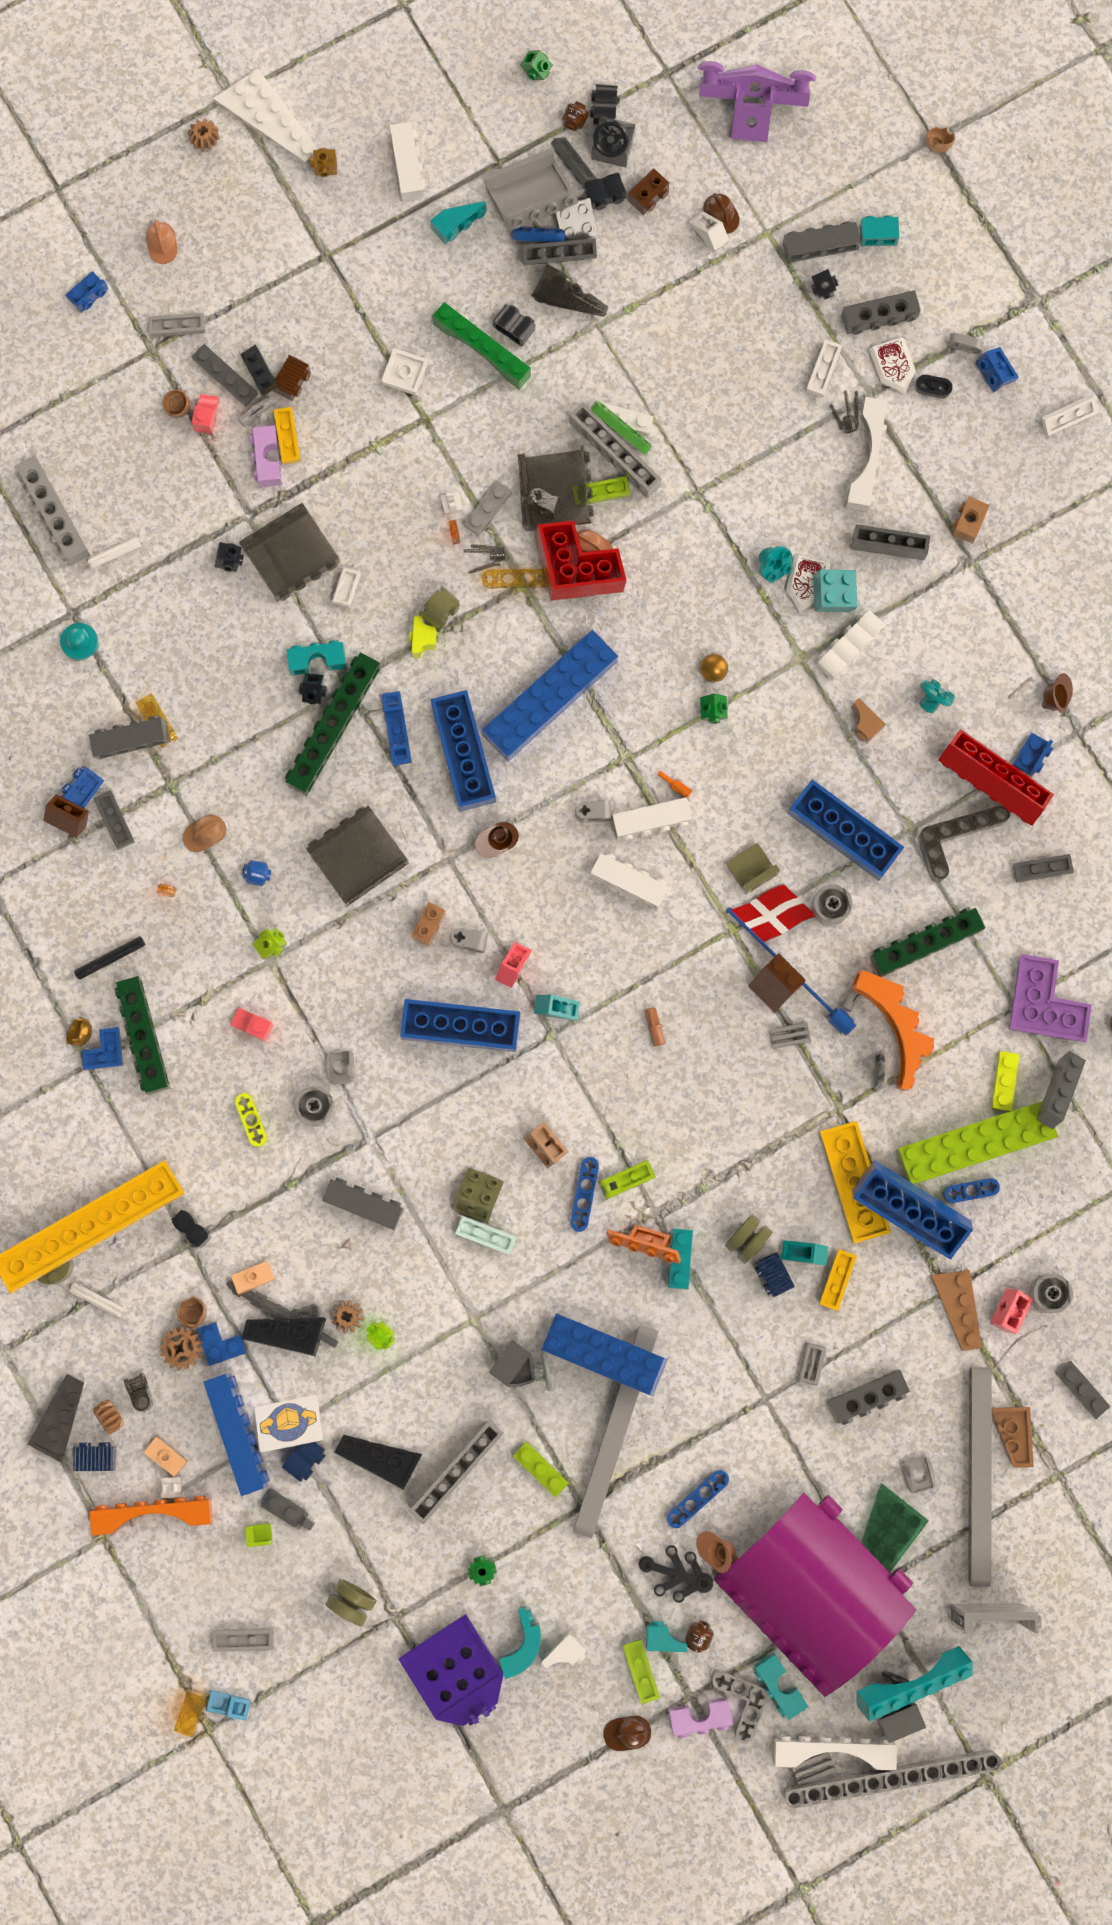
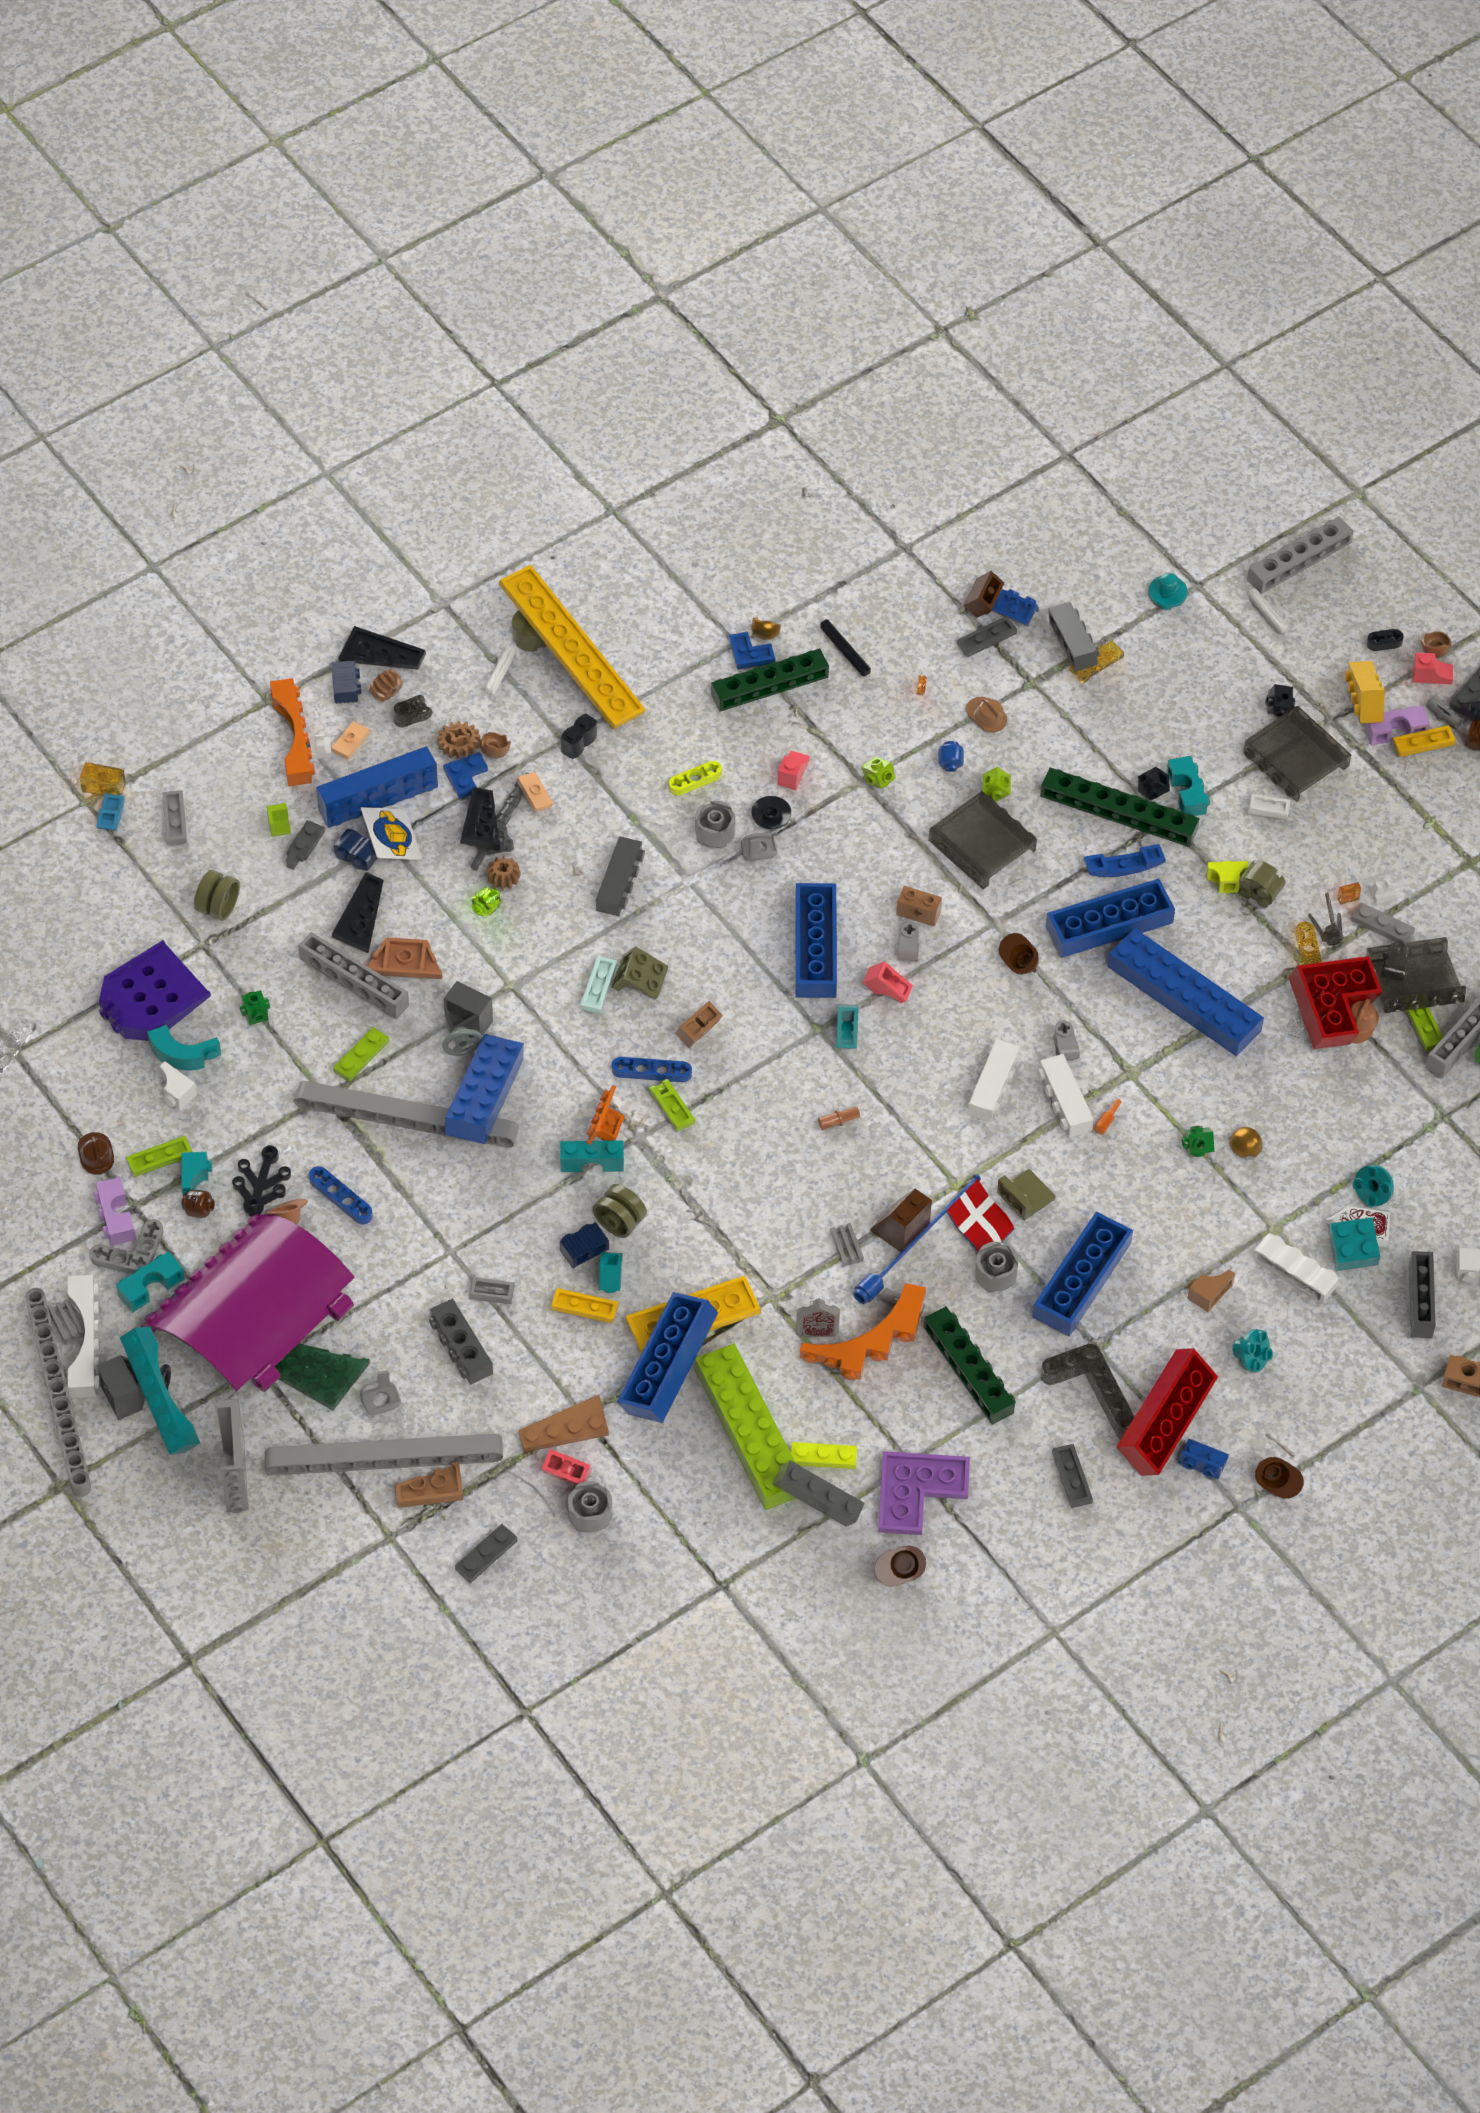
camera: 85 degrees right, 25 degrees down
(158, 450) = (1385, 640): none -> black beam
(232, 476) = (1365, 691): none -> yellow wedge
(297, 834) = (997, 783): none -> lime brick
(303, 1041) = (771, 806): none -> black dish
(437, 1420) = (405, 959): none -> nougat wing
(986, 1193) = (695, 1437): blue beam -> none

